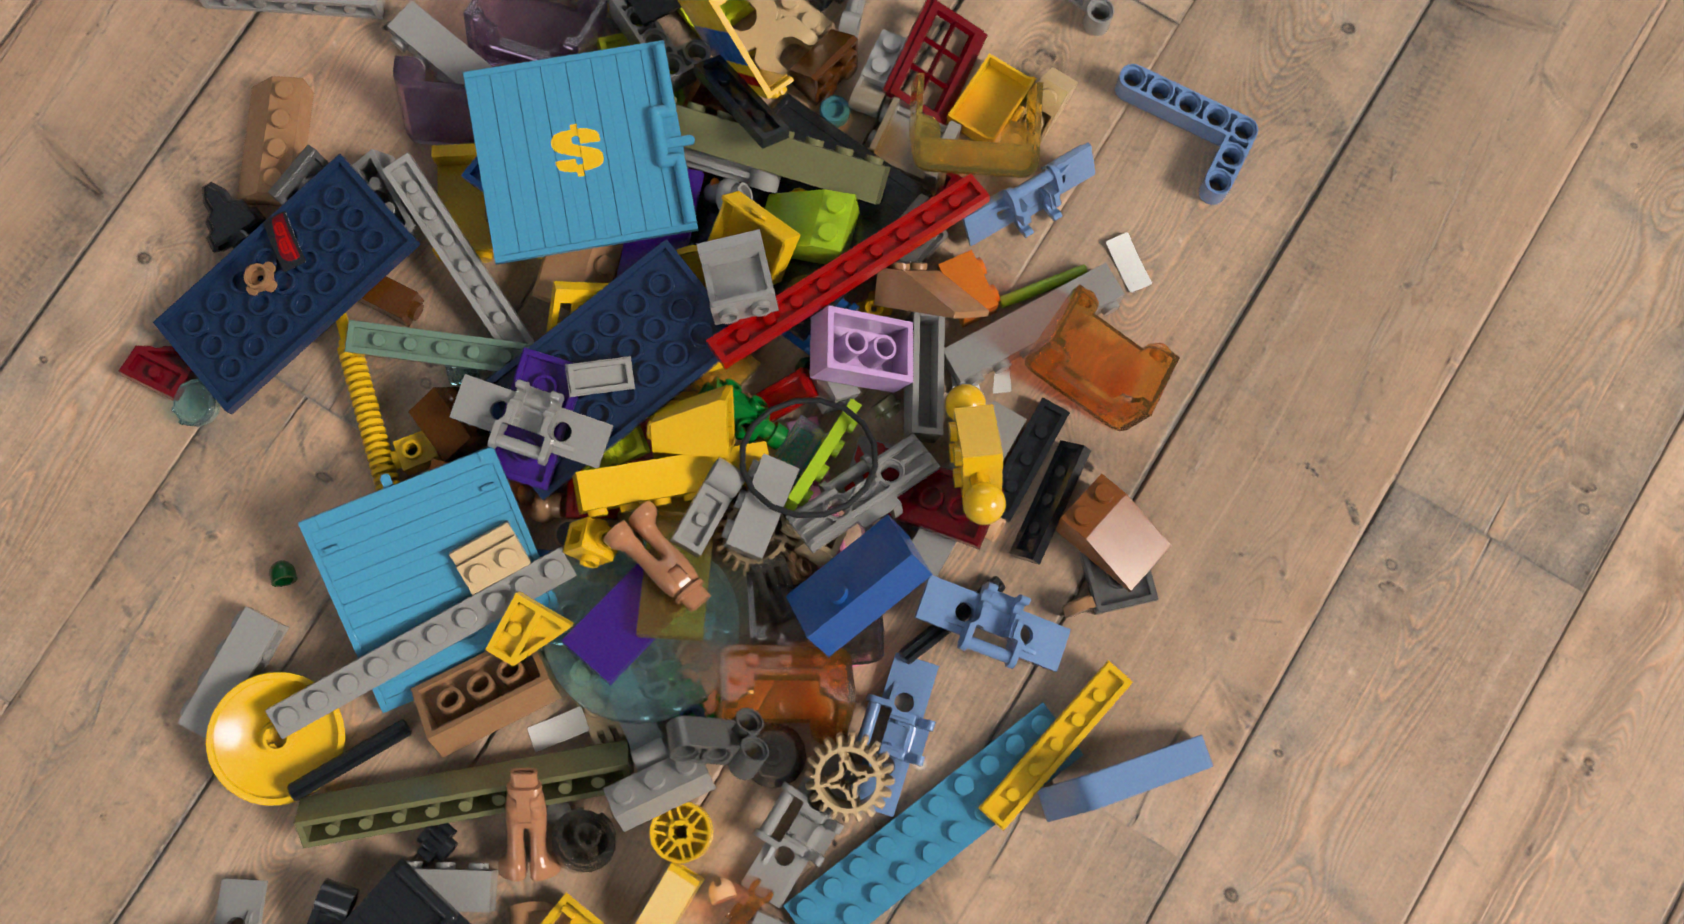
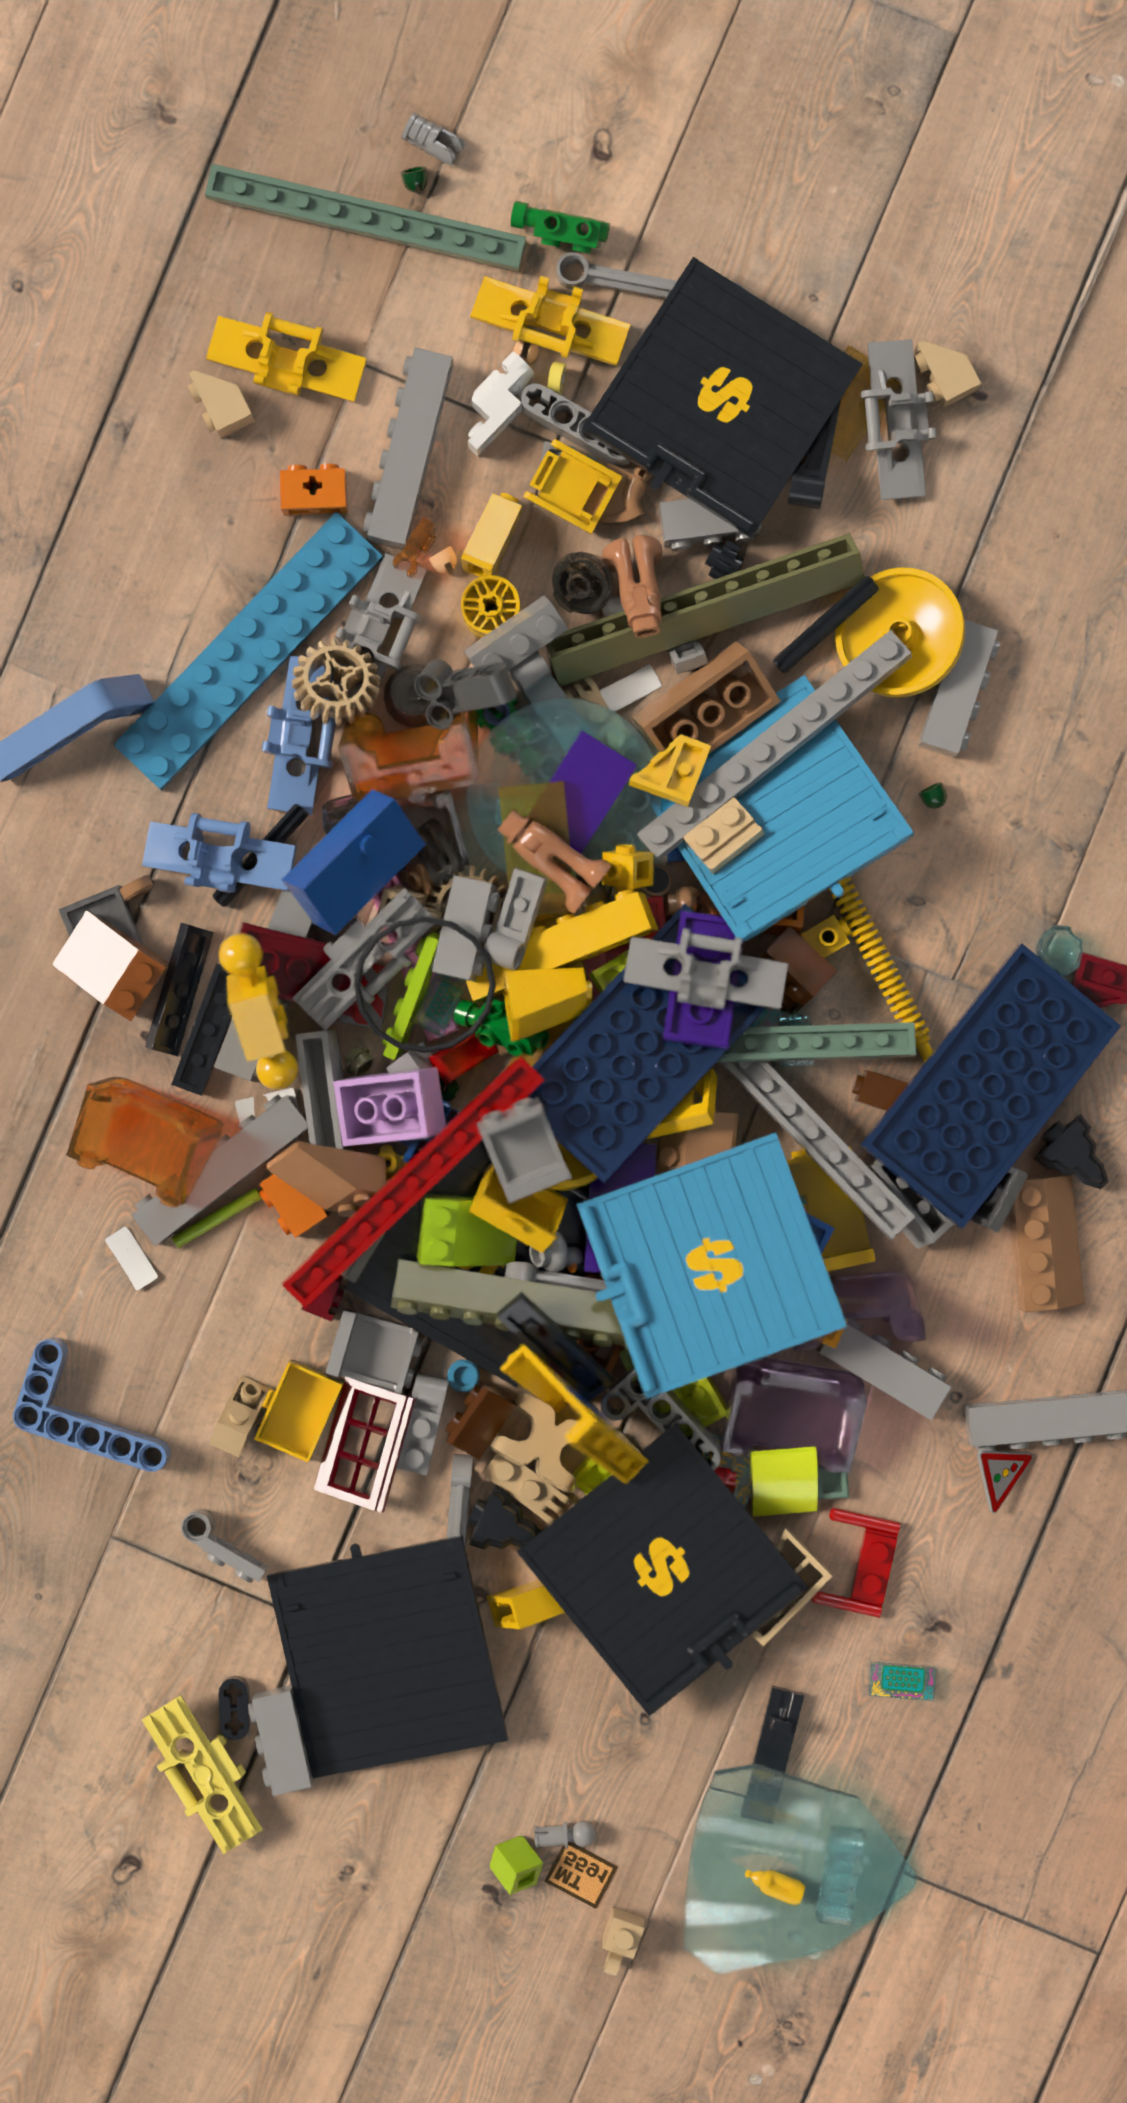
camera: 170 degrees right, 10 degrees up
(254, 272) = (1024, 1085): medium nougat plate -> none
(284, 241) = (1001, 1127): sticker -> none
(493, 749) = (687, 656): none -> light grey plate
(599, 376) = (646, 1029): light grey tile -> none
(1013, 157) = (273, 1335): clear yellow windscreen -> none
(1031, 196) = (226, 1316): medium blue piece -> none
(1055, 745) = (141, 747): yellow tile -> none

